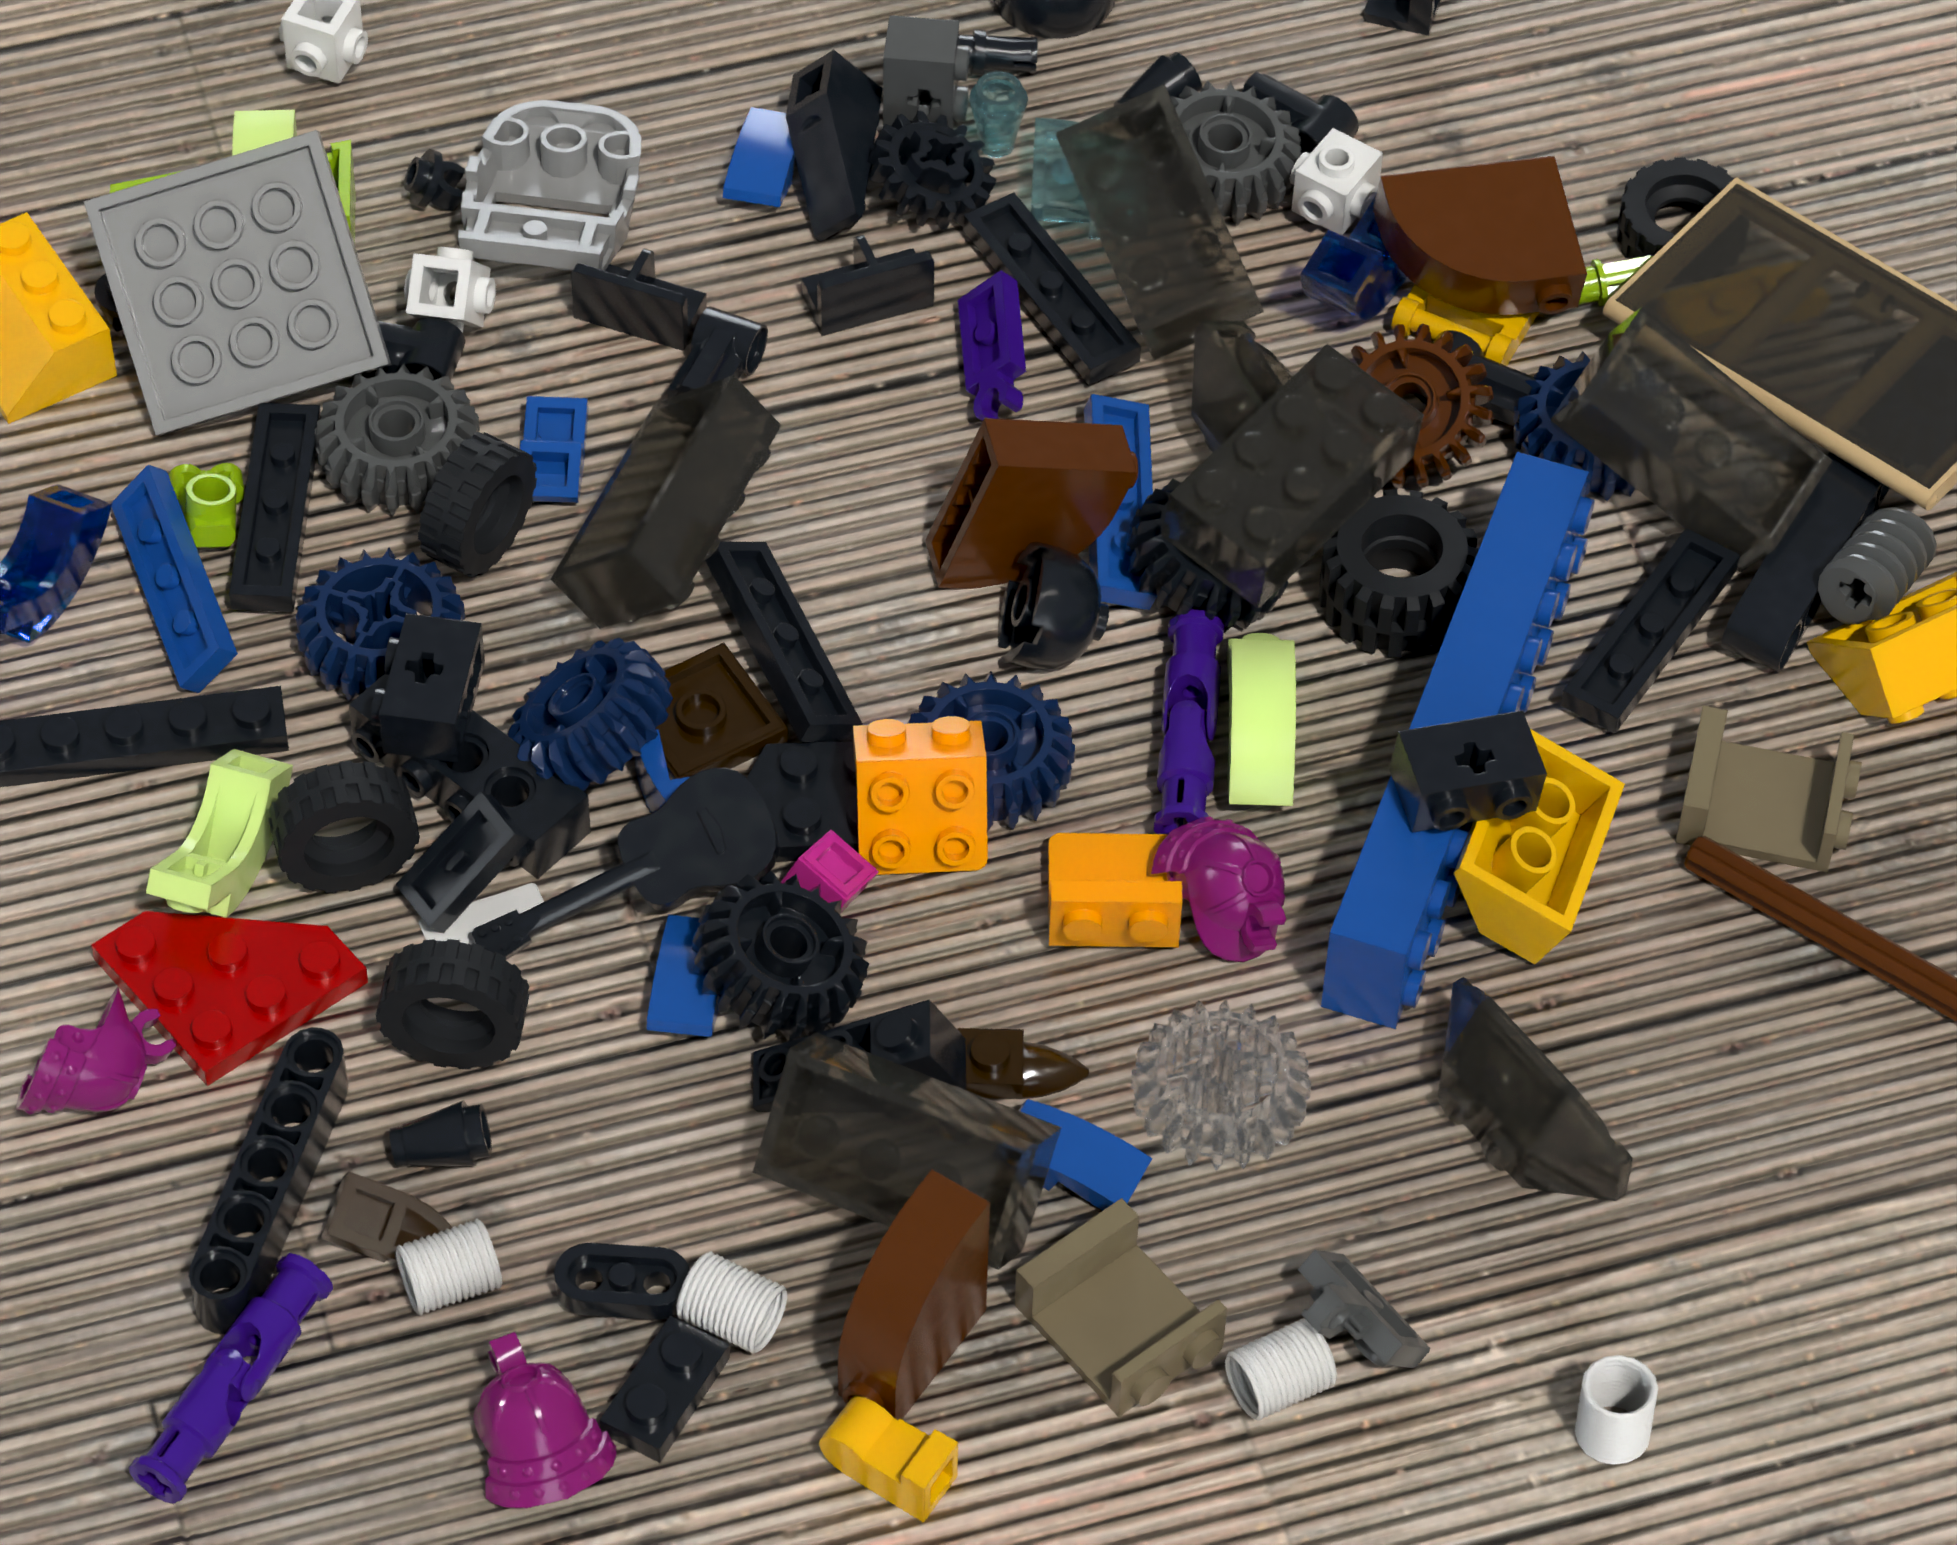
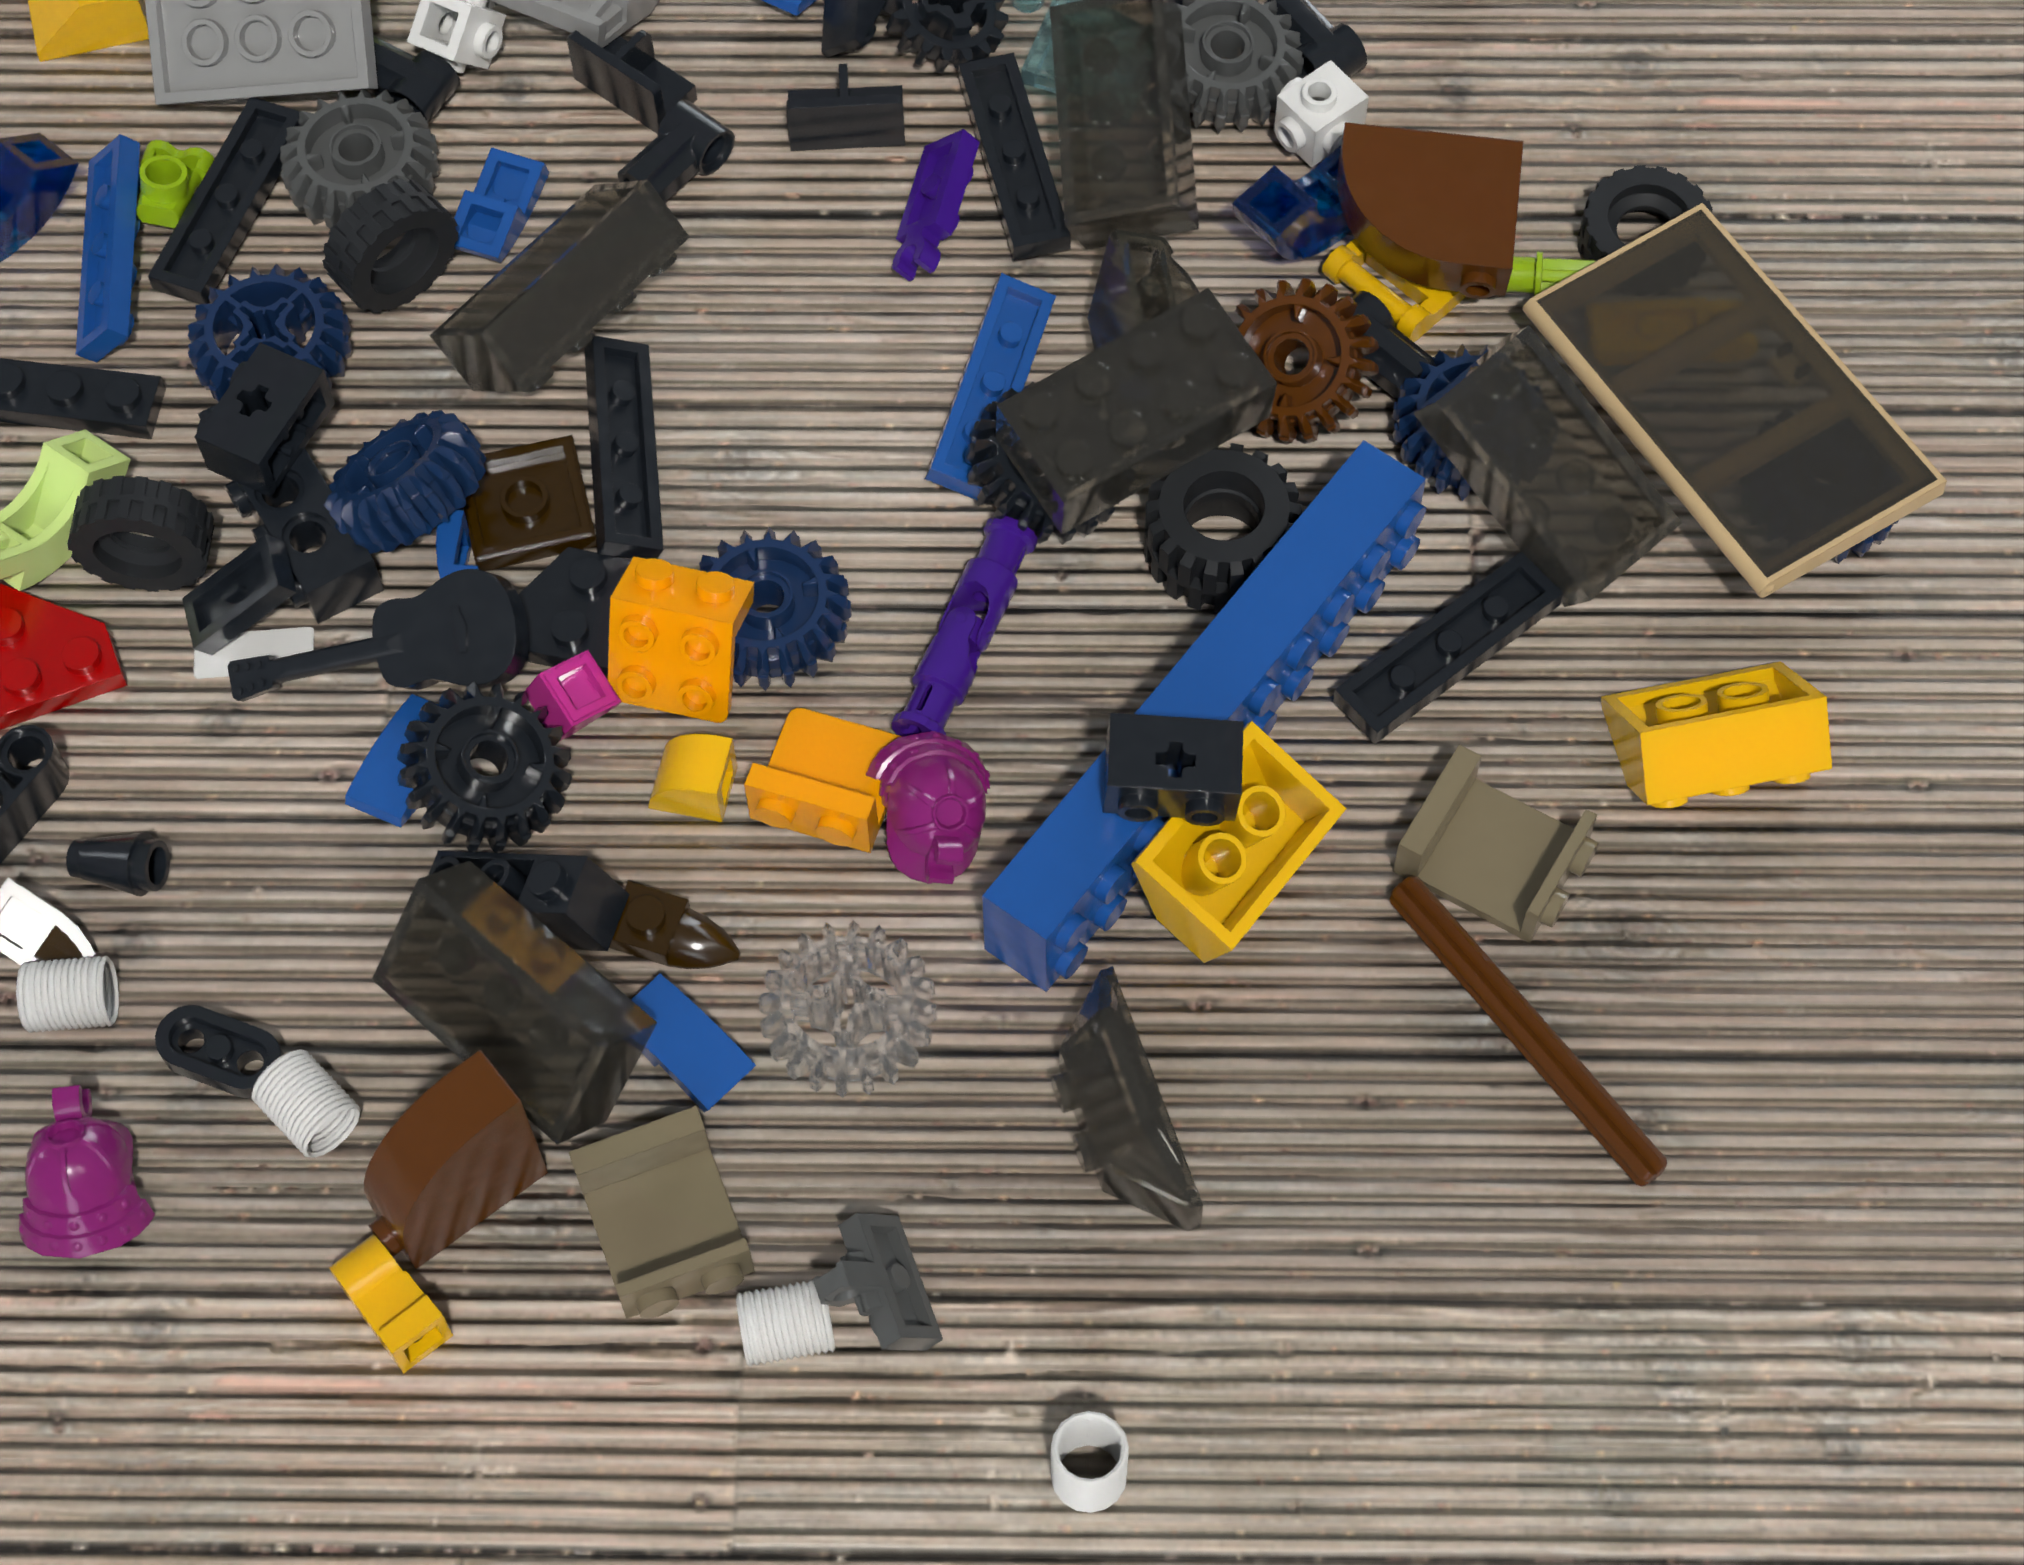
camera: 20 degrees right, 10 degrees up
(457, 973) = (164, 736): black tyre -> none
(665, 1389) = (219, 1169): black plate -> none
(980, 919) = (695, 776): none -> yellow brick
(1027, 487) = (890, 368): reddish brown brick -> none
(1052, 609) = (880, 483): black cylinder -> none
(1261, 720) = (1029, 642): yellowish green arch -> none
(1785, 587) = (1622, 620): black beam -> none
(1877, 566) = (1690, 641): dark grey piece -> none

